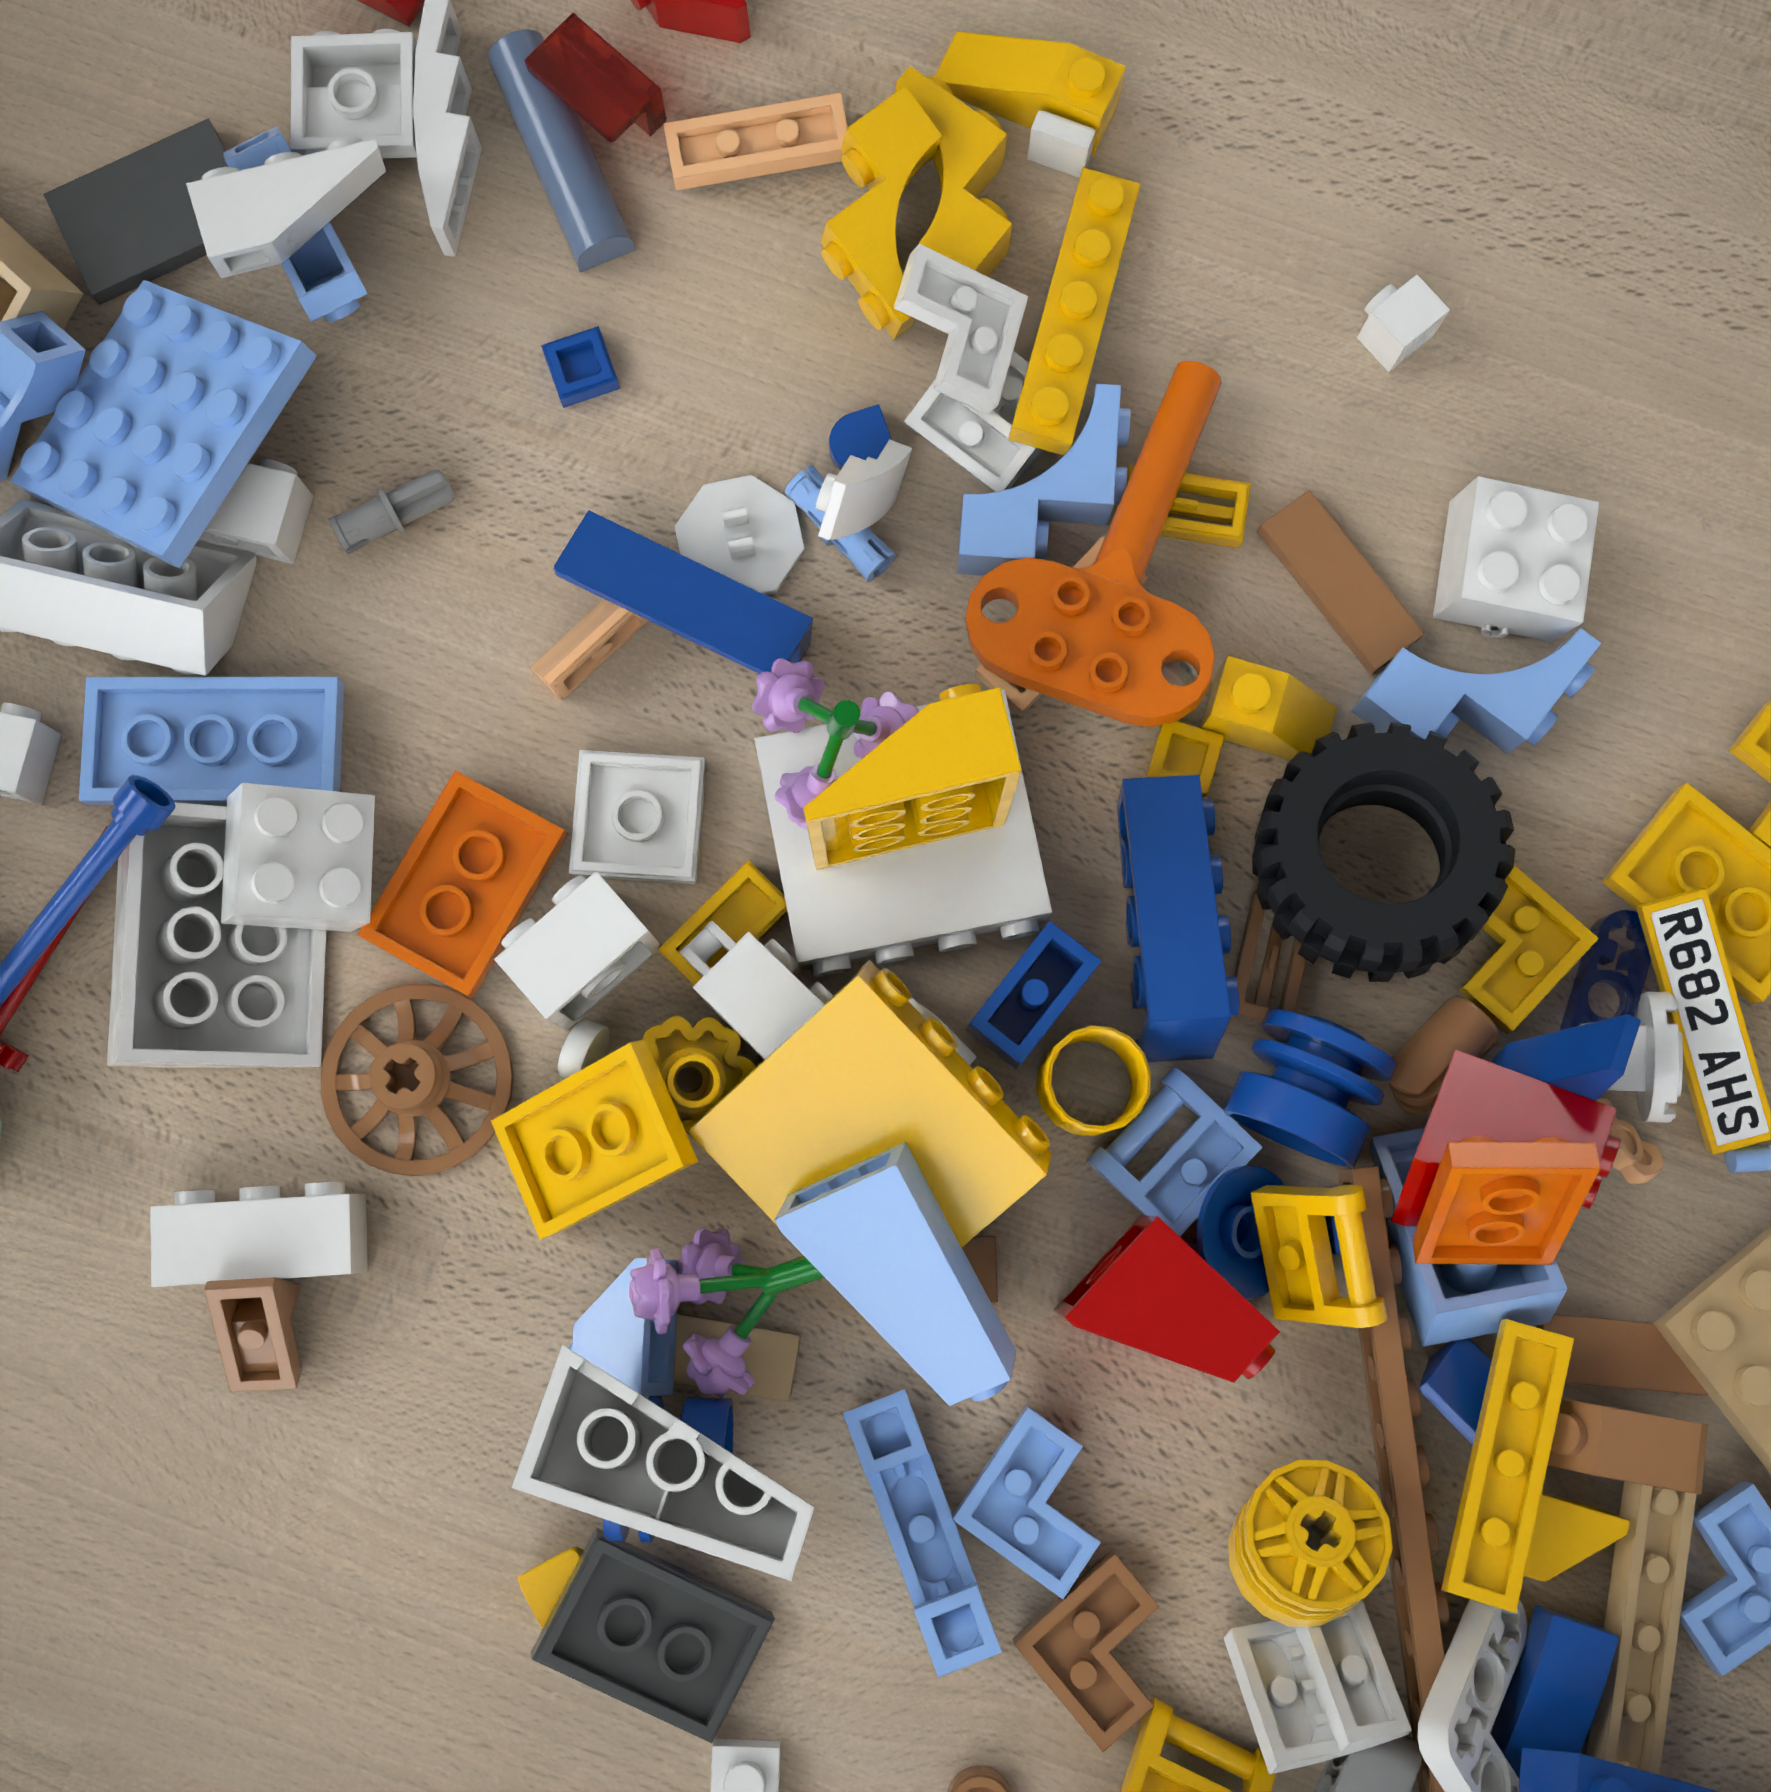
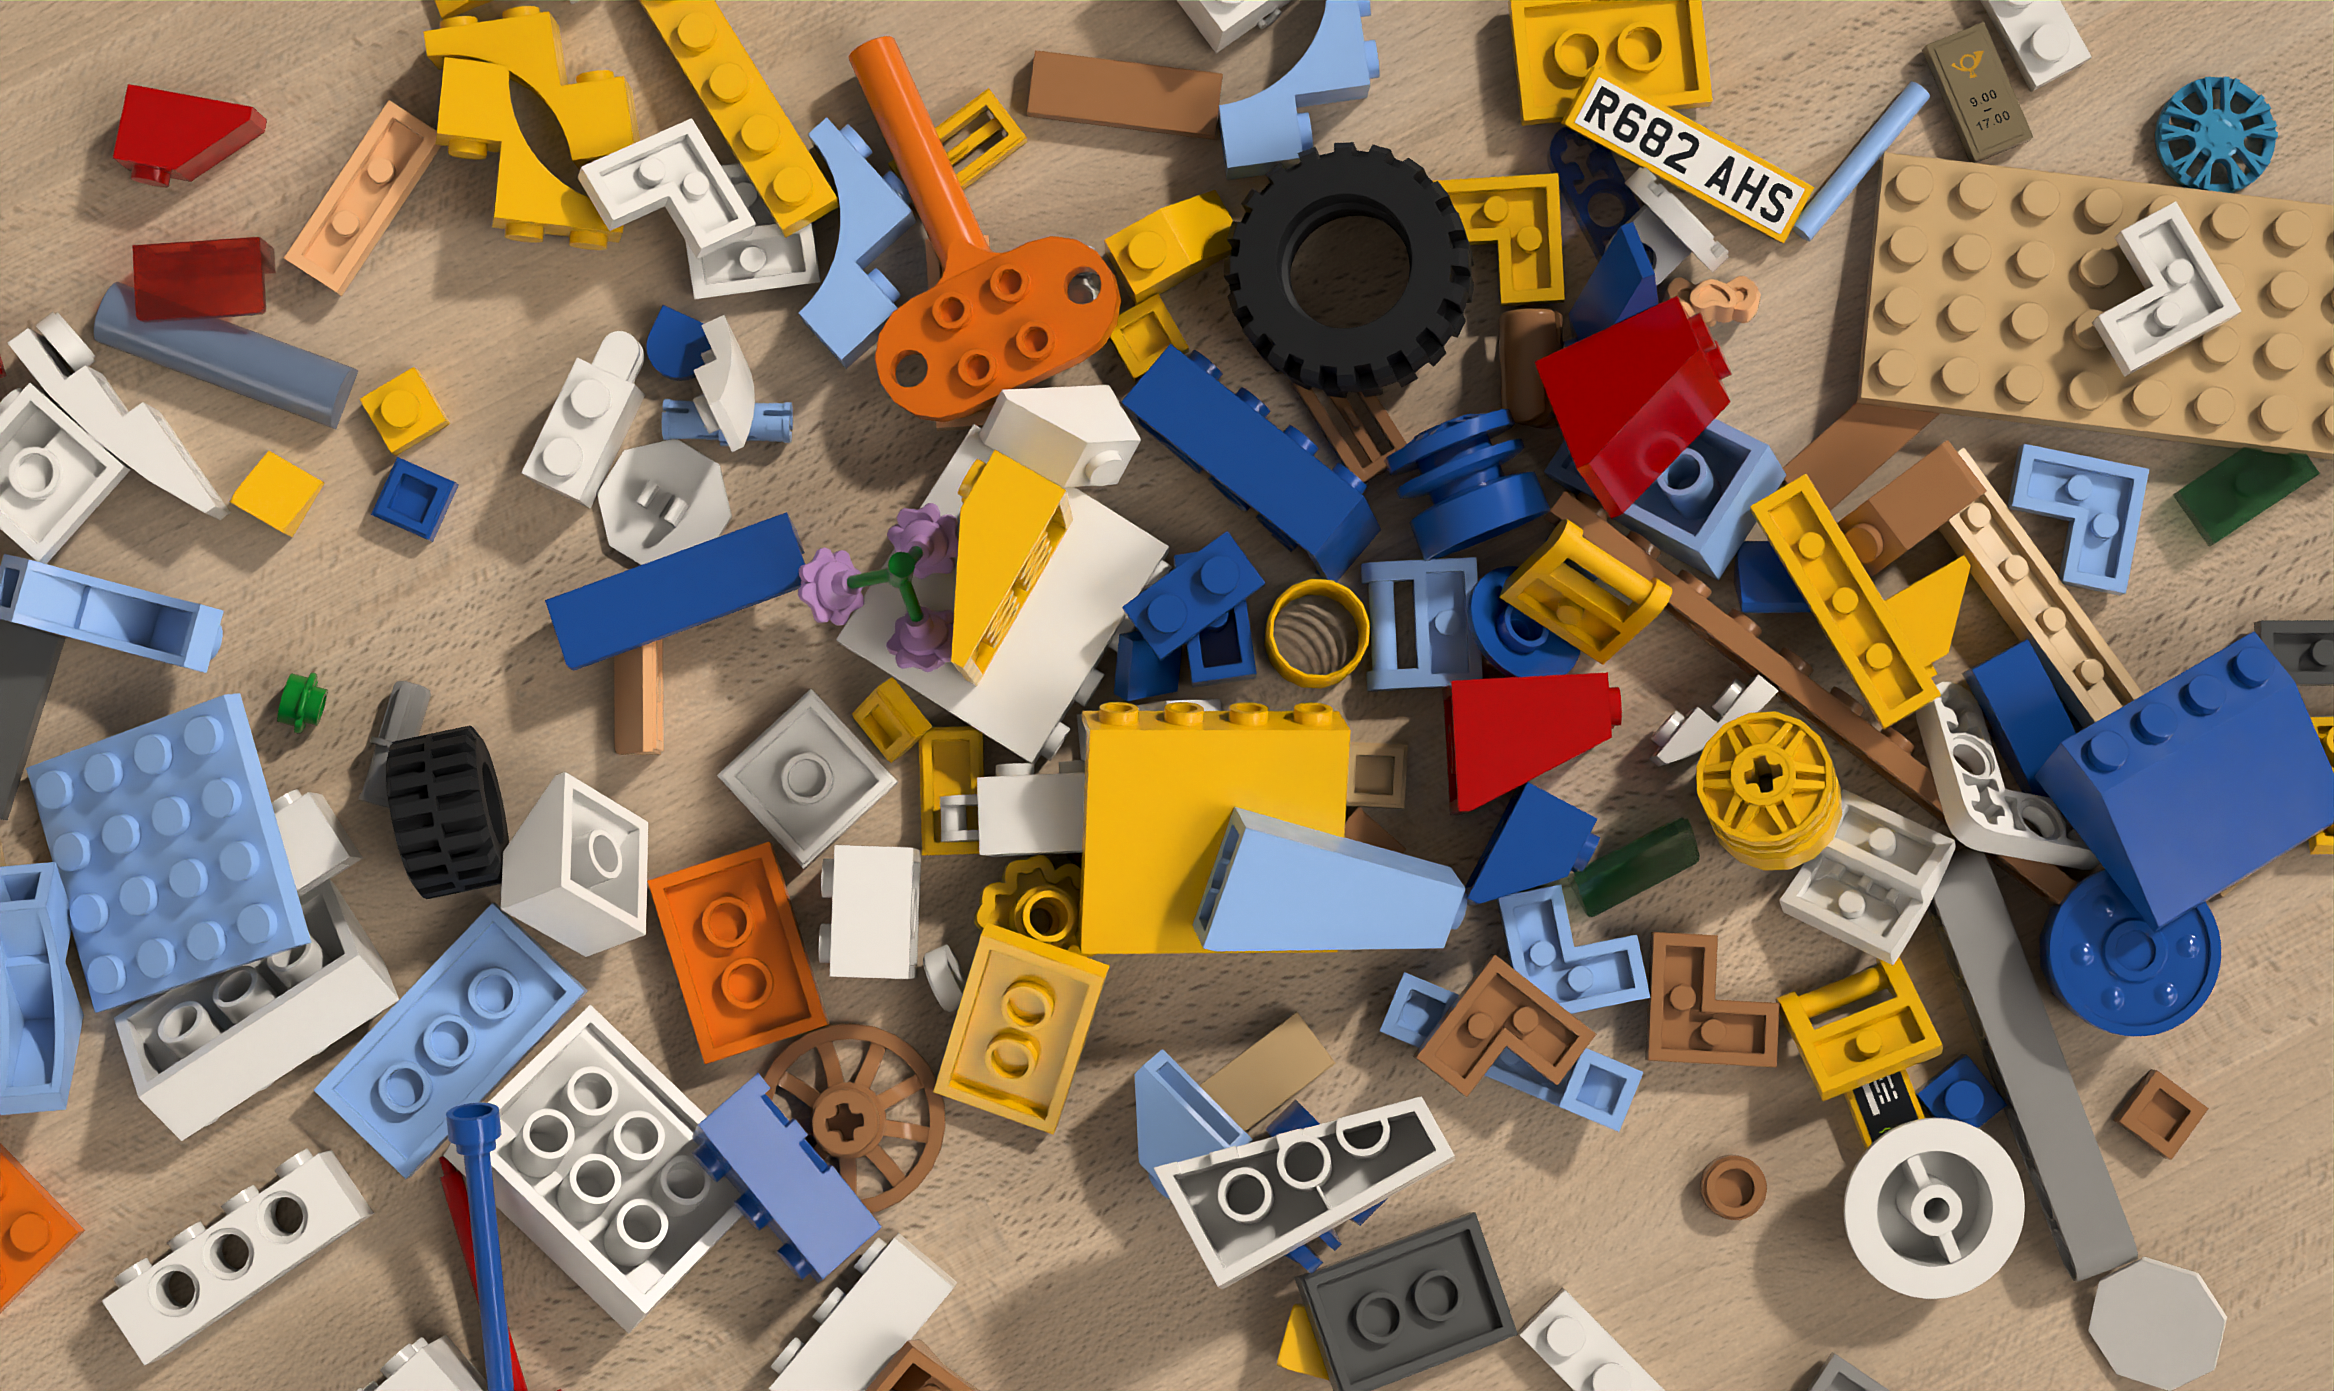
camera: 45 degrees left, 5 degrees up
(273, 209) = (90, 625): white slope -> none
(298, 858) = (610, 1054): white brick -> none
(316, 1071) = (783, 1181): none -> wedge
(362, 418) = (302, 702): none -> green plate
(367, 579) = (446, 811): none -> black tyre
(414, 709) = (578, 869): none -> white slope
(468, 37) = (66, 341): none -> white tile
(495, 271) = (277, 493): none -> yellow slope
(636, 303) = (404, 411): none -> yellow plate
(706, 1272) = (1189, 1040): lavender plant -> none
(735, 834) = (891, 720): none -> yellow tile
(747, 427) = (589, 421): none -> white brick
(940, 1493) = (1500, 1012): none -> medium nougat plate
(953, 979) = (1141, 672): none -> blue tile
(1031, 1227) = (1377, 775): none -> tan tile
(1034, 962) = (1193, 595): none -> blue plate
(1065, 763) = (1063, 433): none -> white slope
(1091, 1397) = (1532, 845): none -> blue slope
(1150, 1489) = (1635, 867): none -> clear green slope
(1297, 1439) = (1688, 734): none -> white slope
(1504, 1201) = (1664, 437): orange plate -> none

